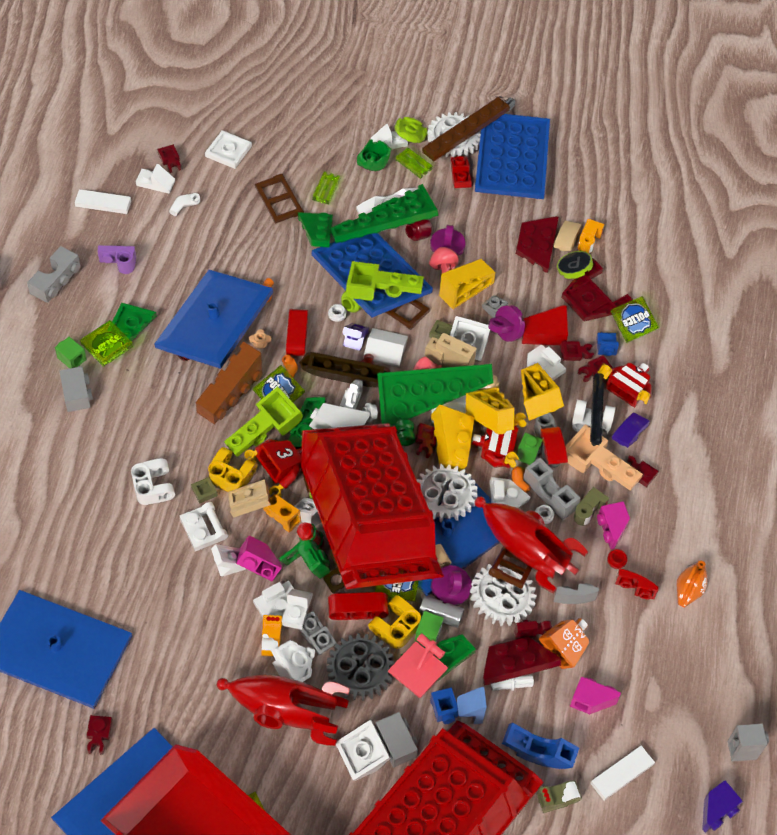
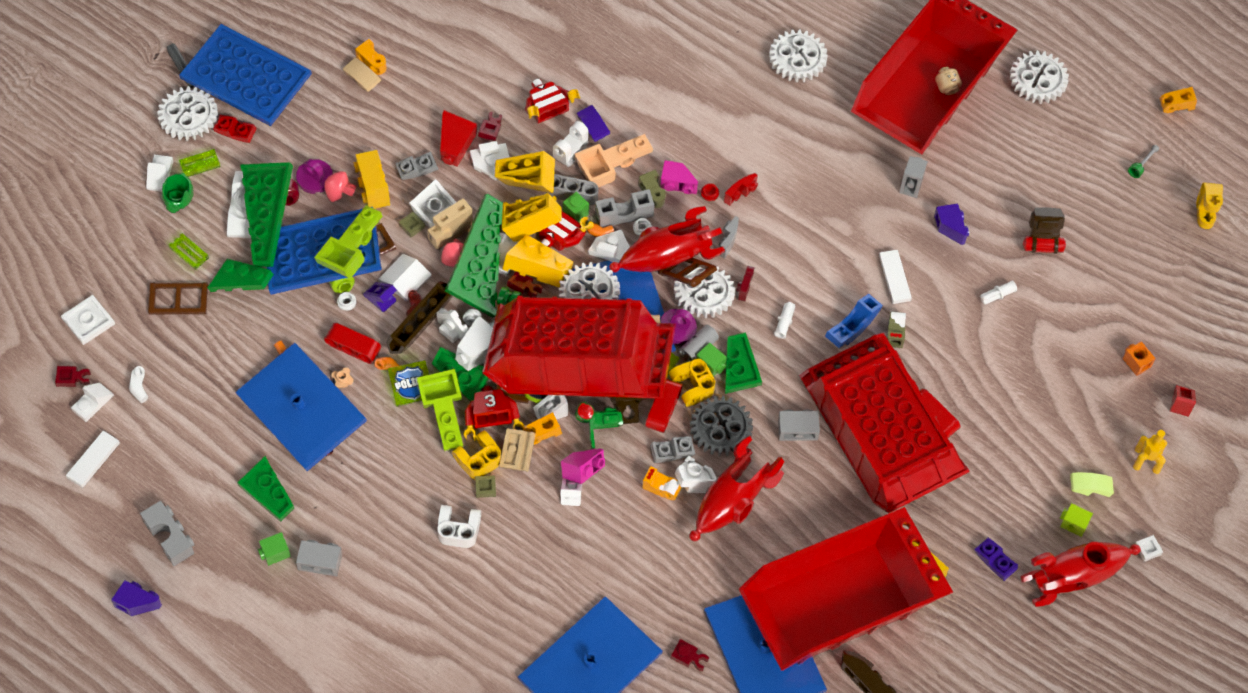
camera: 65 degrees left, 5 degrees up
(106, 343) = (282, 511): clear neon green tile -> none
(122, 255) = (174, 466): medium lavender plate -> none
(197, 529) = (523, 506): white plate -> none
(230, 384) = (386, 419): dark orange wedge -> none
(273, 599) = (630, 467): white plate -> none
(296, 608) = (646, 452): white slope -> none
(363, 751) = (798, 453): white slope -> none
(410, 130) = (160, 148): lime tile -> none
(418, 667) = (747, 379): coral plate -> none
(444, 699) = (785, 377): blue brick -> none
(465, 129) = (194, 98): reddish brown plate -> none
(472, 705) = (799, 352): medium blue slope -> none
(508, 323) = (439, 163): magenta tile -> none
(517, 659) = (768, 306): dark red wing -> none
(537, 241) = (352, 102): dark red wing -> none
(554, 445) = (590, 184): red slope -> none
(566, 641) = (771, 262): orange torso -> none
(575, 264) = (399, 83): tile -> none
(588, 299) = (438, 91): dark red wing -> none
(593, 367) = (517, 119): dark red plate -> none
(593, 697) = (824, 267): dark pink slope -> none
(597, 409) = (567, 136): black axle -> none
(607, 344) = (495, 100): blue bracket -> none
(634, 319) = (482, 65): tile -> none
(648, 471) = (634, 132): dark red plate -> none
(691, 584) = (756, 149): orange hat -> none

